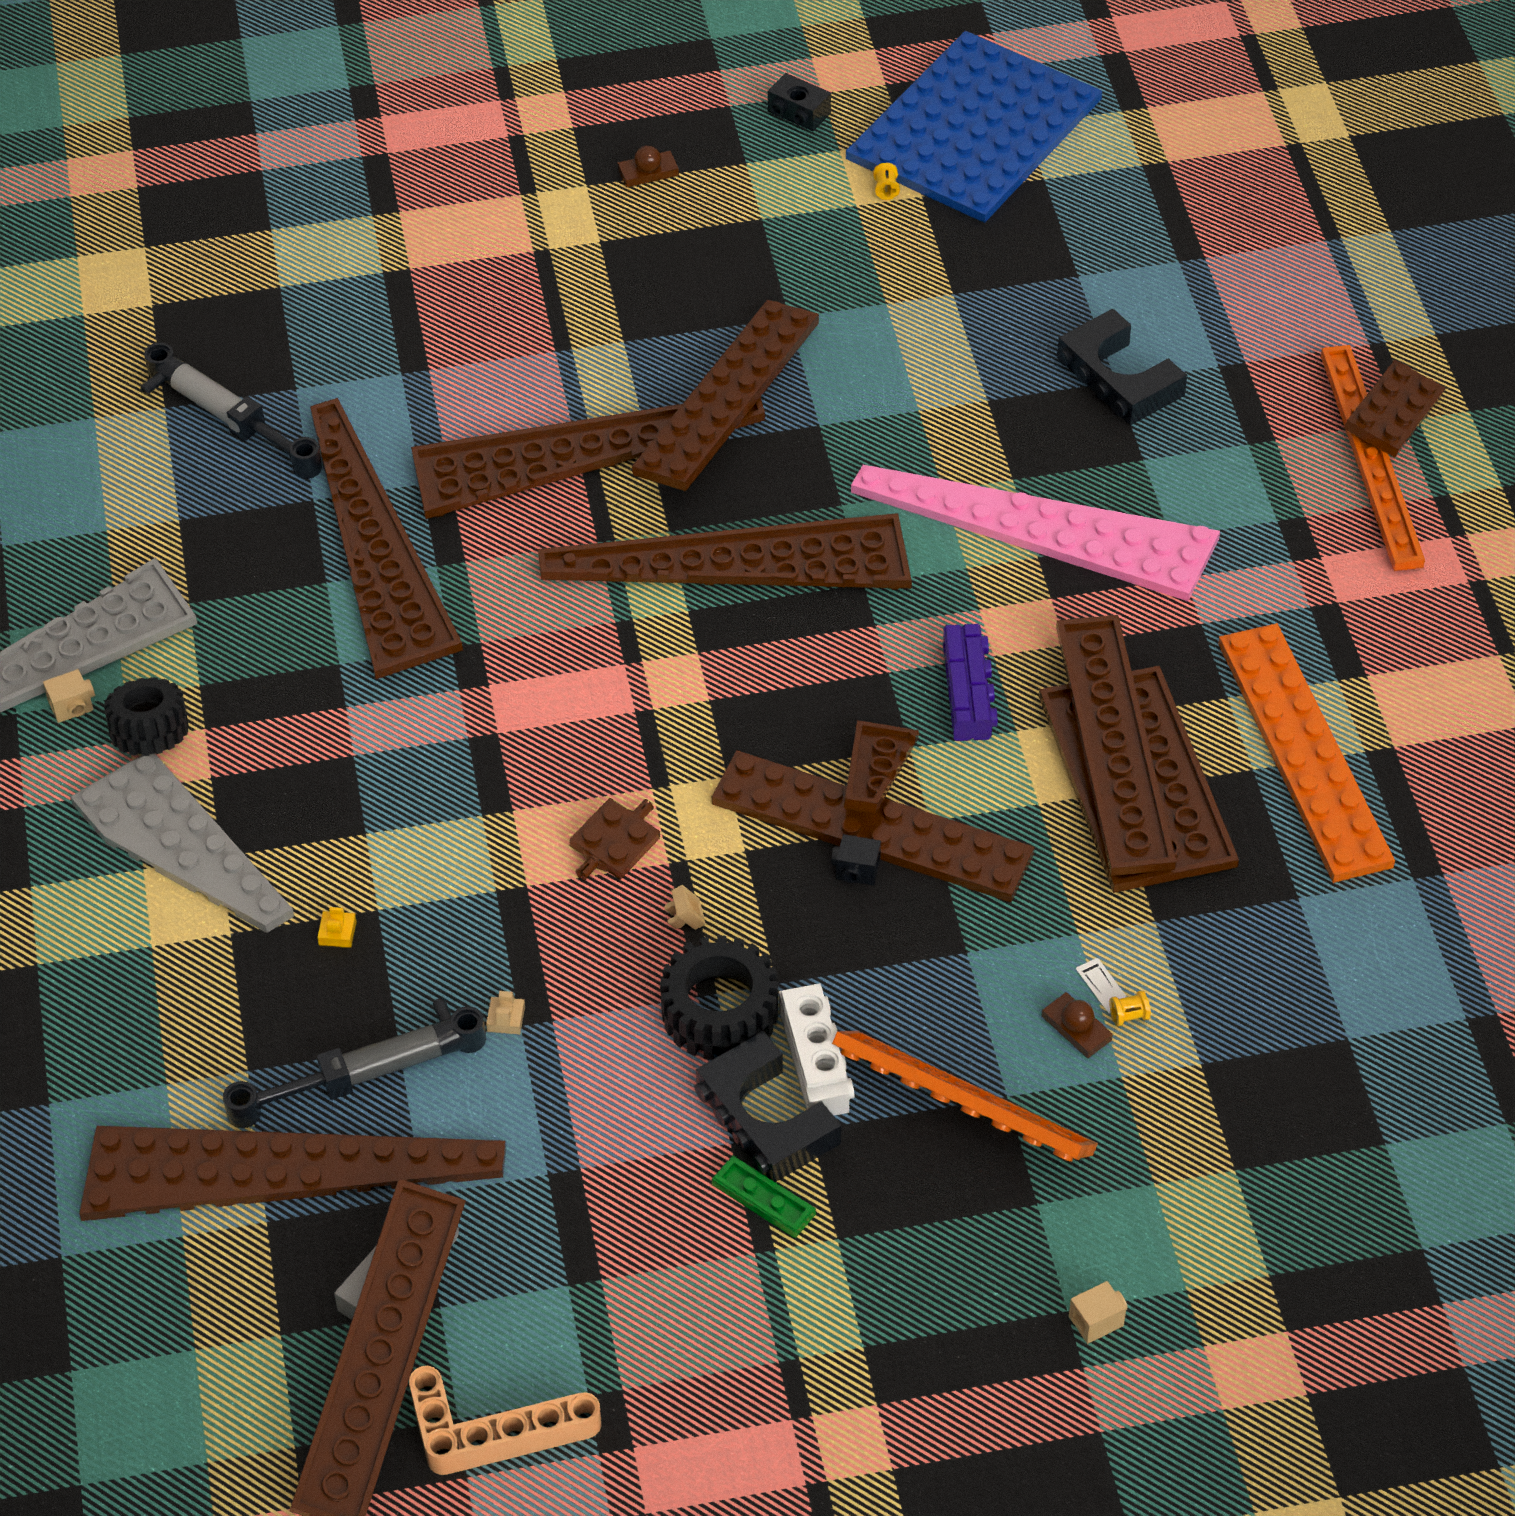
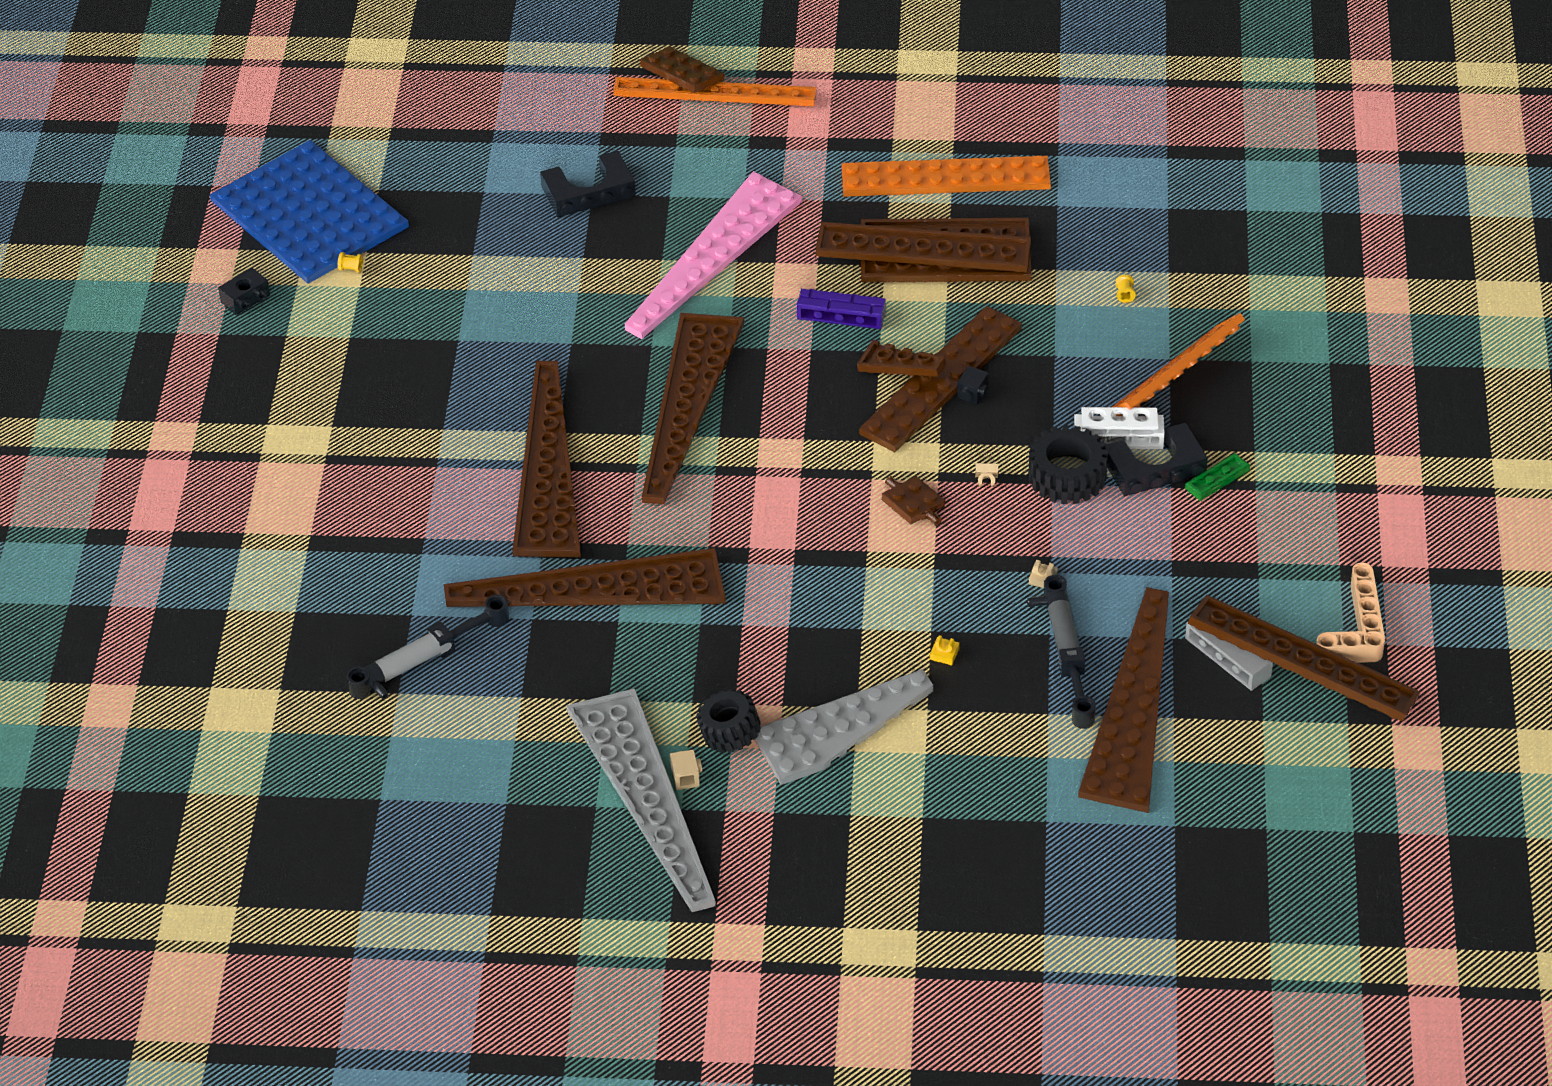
camera: 75 degrees left, 5 degrees down
(648, 166) = (270, 385): reddish brown tile -> none
(725, 395) = (535, 374): reddish brown plate -> none
(1077, 1024) = (1127, 314): reddish brown tile -> none
(1098, 1311) = (1340, 344): tan brick -> none
(1100, 982) = (1098, 301): white sticker -> none

